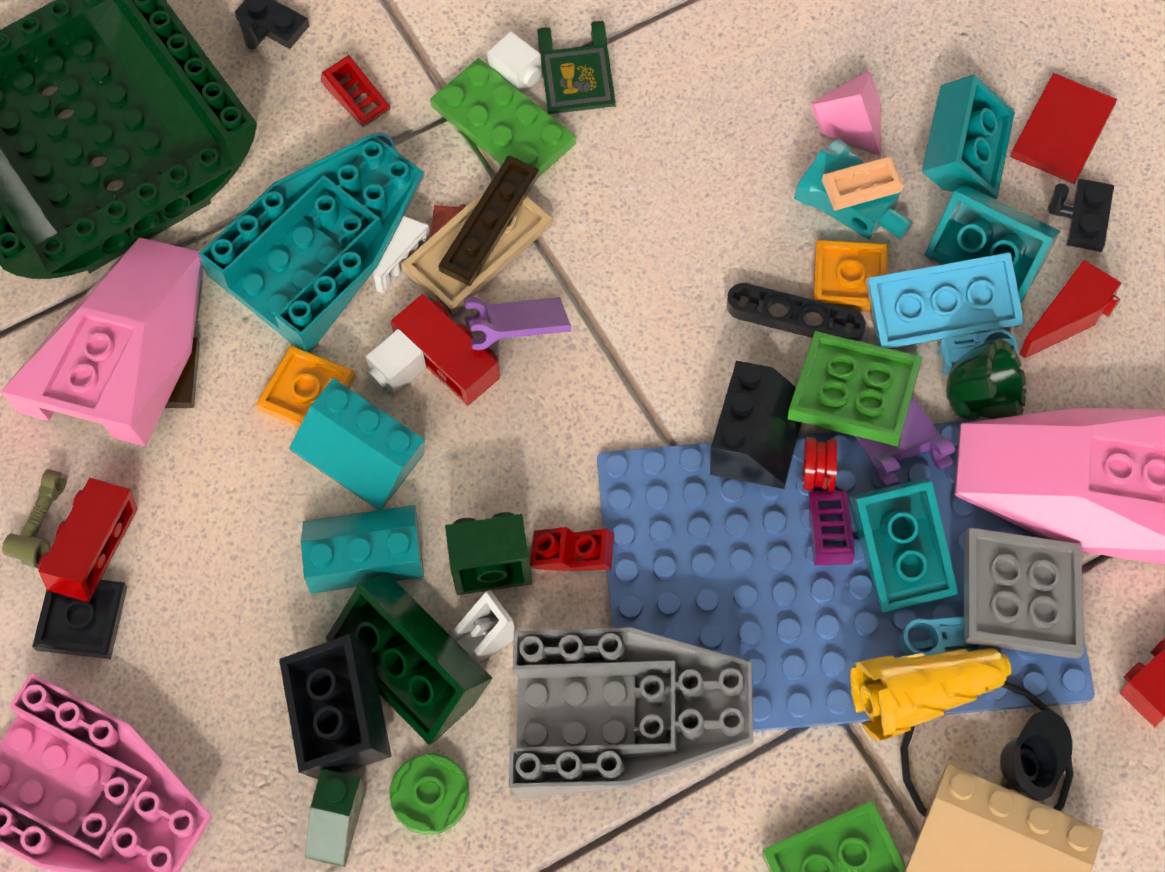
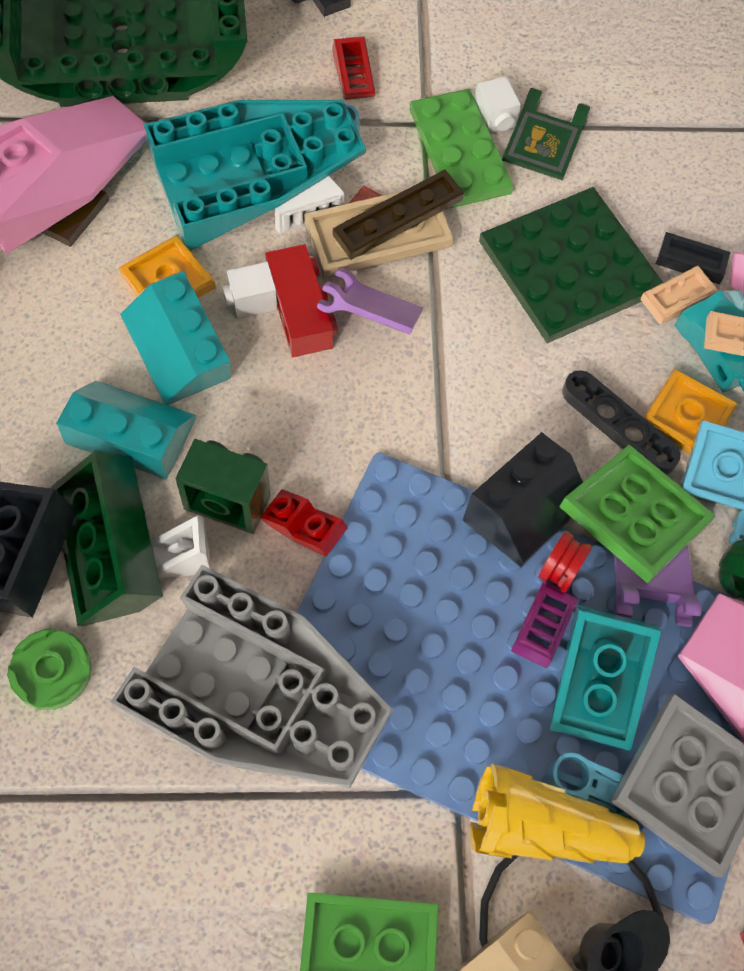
camera: 20 degrees right, 0 degrees up
(669, 186) = (570, 264): none -> dark green plate
(776, 124) = (684, 254): none -> black tile
(783, 167) = (678, 294): none -> light nougat plate

